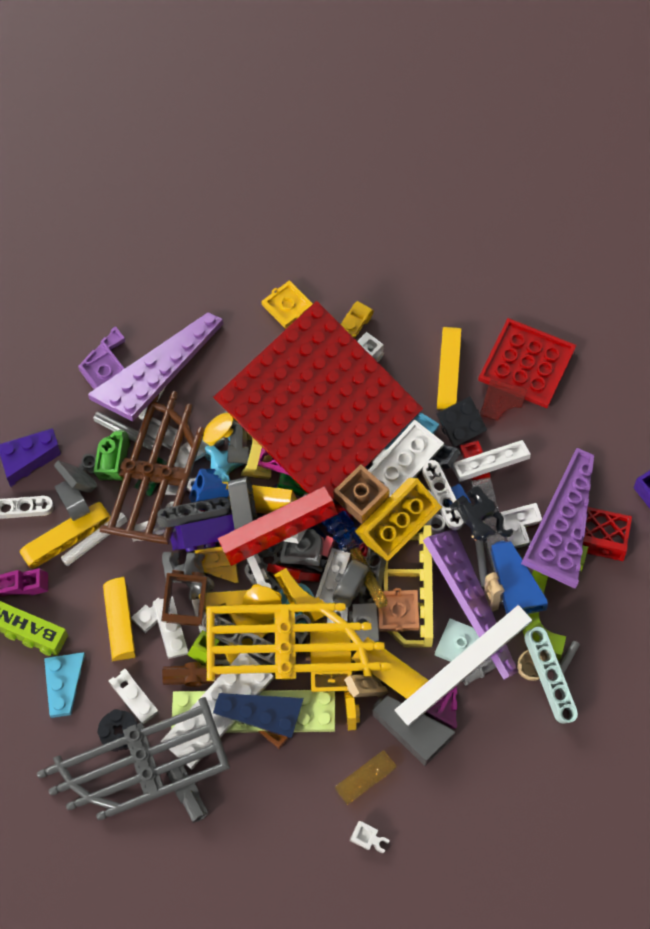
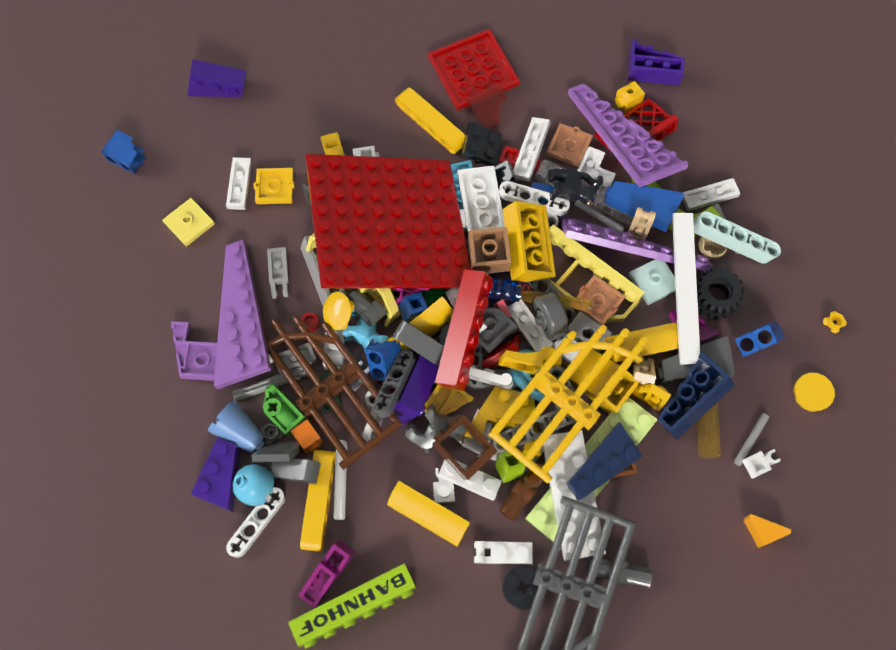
camera: 50 degrees left, 5 degrees up
(38, 480) = (253, 484): none -> medium azure cylinder
(62, 681) = (444, 601): medium azure wing -> none
(71, 436) = (237, 428): none -> medium blue cone
(106, 489) = (307, 437): none -> orange brick
(198, 419) = (311, 321): none -> red tile
(204, 271) = (188, 222): none -> light yellow plate
(219, 364) = (278, 270): none -> light grey hinge
(220, 181) = (123, 153): none -> blue piece
(261, 596) = (512, 388): yellow dish -> none
(266, 278) = (239, 183): none -> white plate
(269, 477) = (412, 306): none -> blue brick
(311, 881) = (764, 530): none -> light orange slope
(336, 190) = (215, 80): none -> dark purple wedge
(376, 742) = (695, 396): none -> dark blue wedge
(382, 818) = (751, 439): none -> light grey piece
(470, 840) = (814, 392): none -> yellow tile
(488, 764) = (773, 327): none -> blue piece
(494, 684) = (728, 284): none -> black tyre
(525, 487) = (569, 145): none -> nougat plate
(556, 810) = (838, 318): none -> yellow plate
(581, 631) = (710, 194): none -> white plate
(615, 499) = (629, 96): none -> yellow brick

